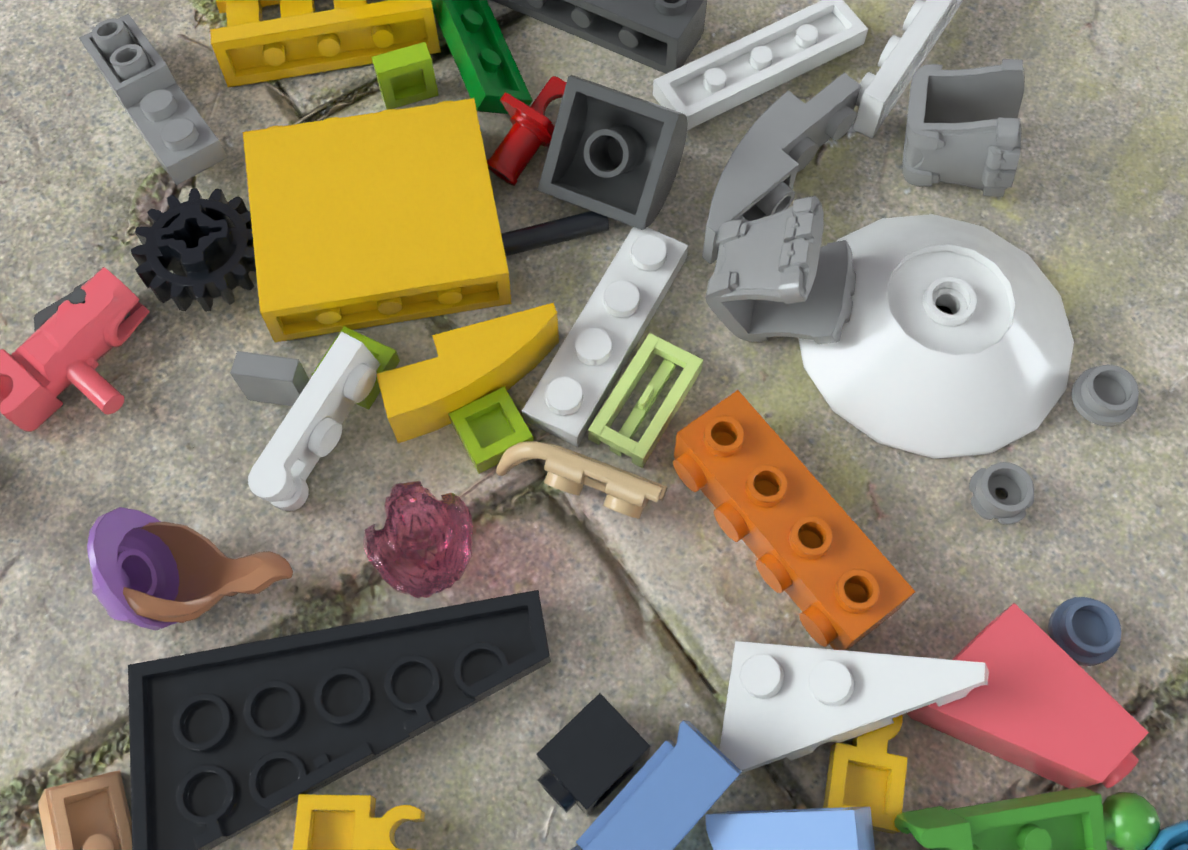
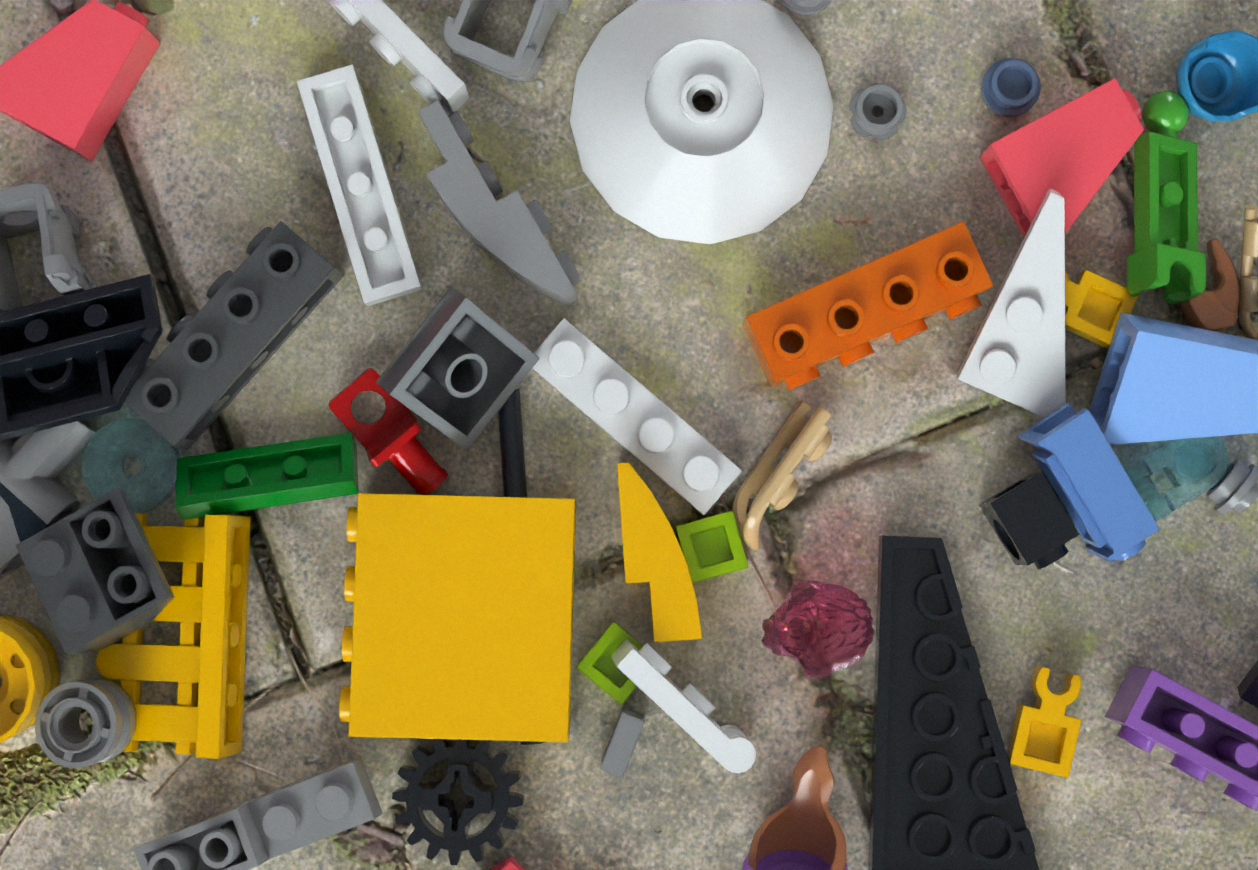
camera: 80 degrees left, 20 degrees up
(405, 75) = (291, 559): lime tile -> none
(622, 441) = (676, 365): yellowish green tile -> none
(779, 278) = (641, 240): light grey piece -> none

